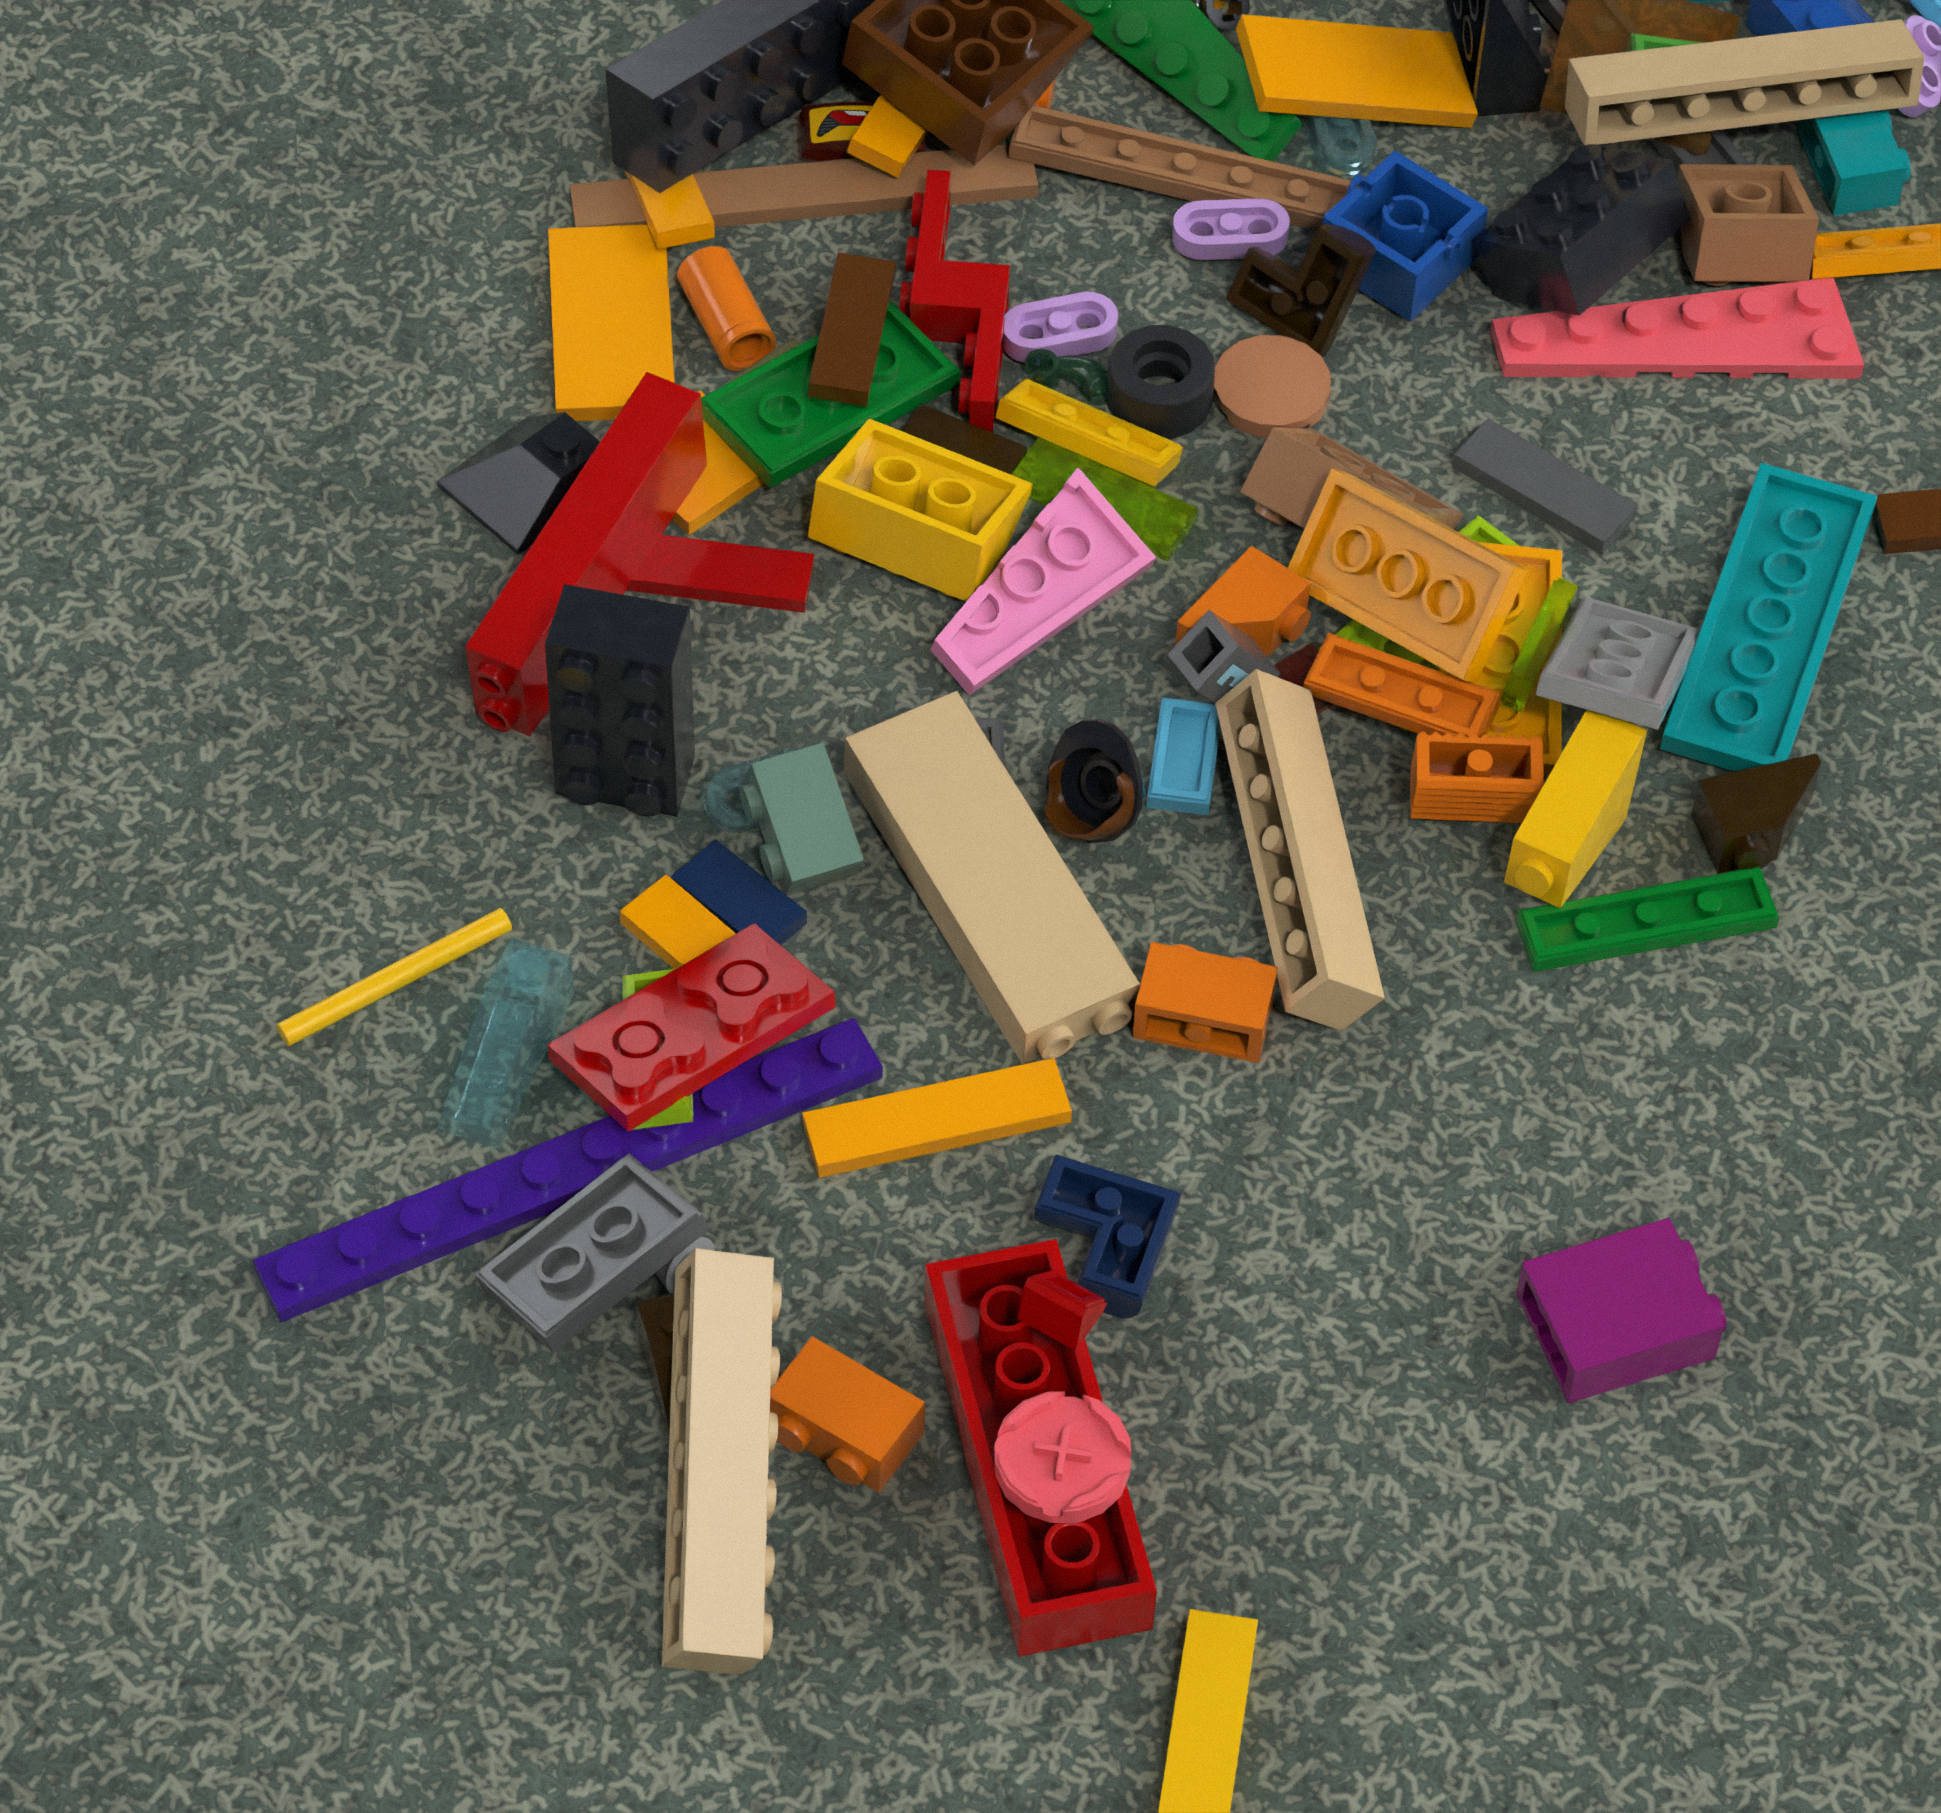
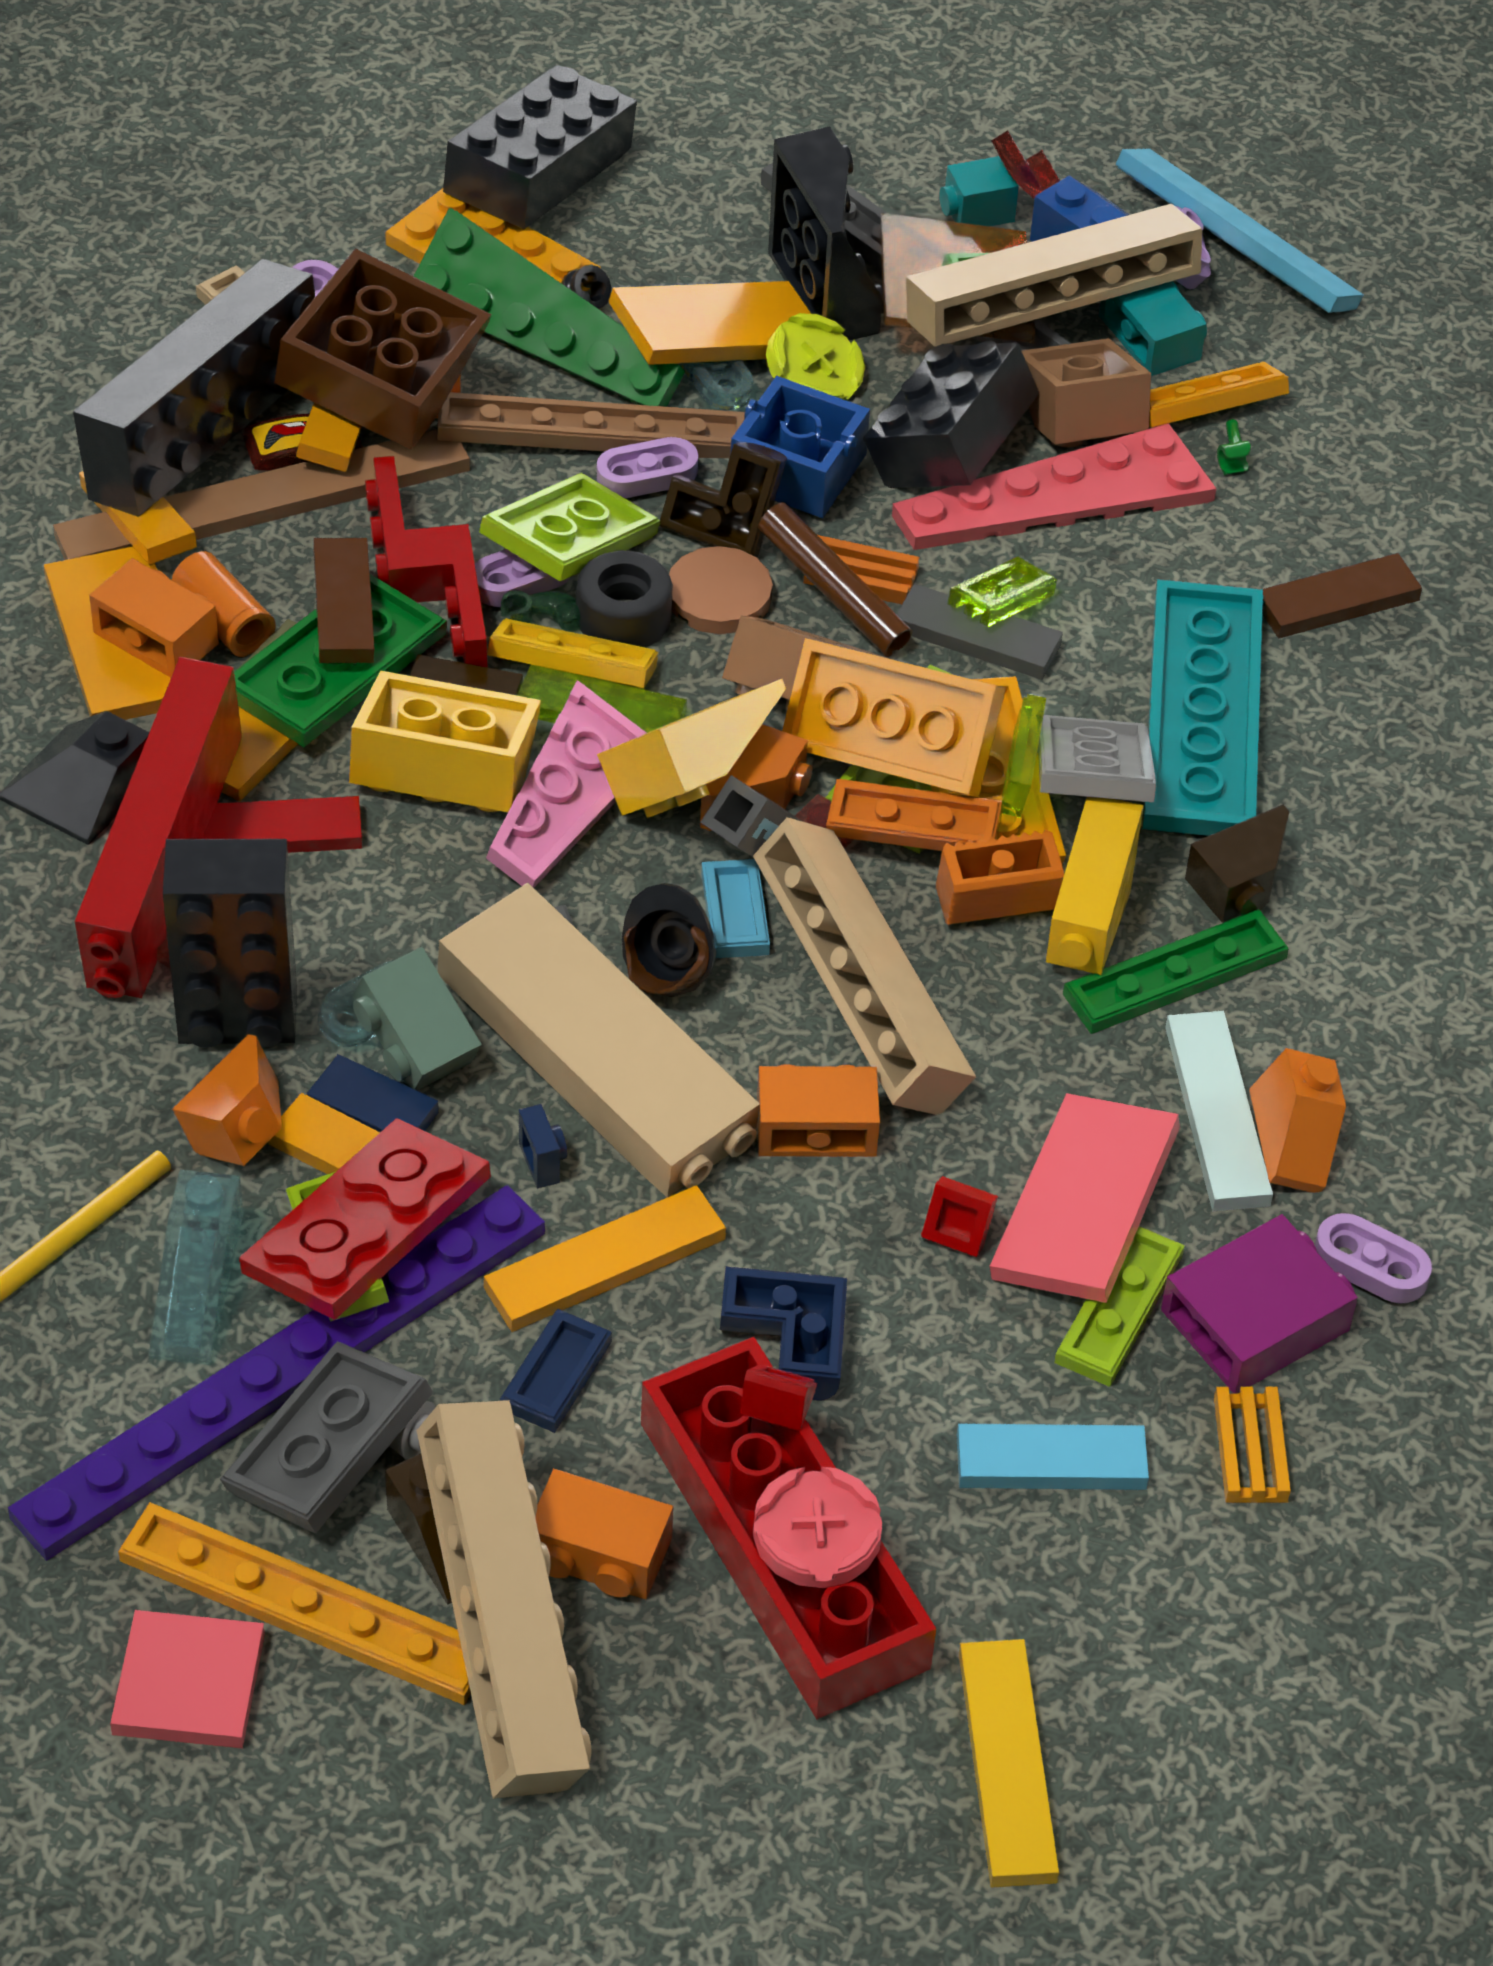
camera: 15 degrees left, 5 degrees down
(389, 1476) = (188, 1679): none -> coral tile
(519, 1416) = (298, 1600): none -> light orange tile
(591, 875) = (233, 1106): none -> orange slope
(645, 313) = (153, 617): none -> orange brick
(851, 1229) = (556, 1370): none -> dark blue tile
(901, 982) = (541, 1145): none -> dark blue plate
(1123, 284) = (569, 525): none -> lime tile
(1173, 574) = (686, 753): none -> yellow slope
(1323, 1148) = (959, 1216): none -> red tile
(1348, 1430) = (1052, 1456): none -> medium azure tile
(1398, 398) = (835, 579): none -> reddish brown piece
(1440, 385) = (878, 563): none -> orange tile
(1453, 133) = (816, 355): none -> neon yellow tile
(1467, 1154) = (1085, 1198): none -> coral tile
(1470, 1279) = (1107, 1331): none -> lime tile
(1576, 1414) = (1248, 1403): none -> light orange tile
(1589, 451) = (1008, 597): none -> clear neon green tile
(1645, 1086) = (1218, 1111): none -> light aqua tile
(1725, 1114) = (1299, 1118): none -> orange slope
(1766, 1284) = (1374, 1258): none -> lavender plate
(1898, 328) = (1233, 455): none -> green hand

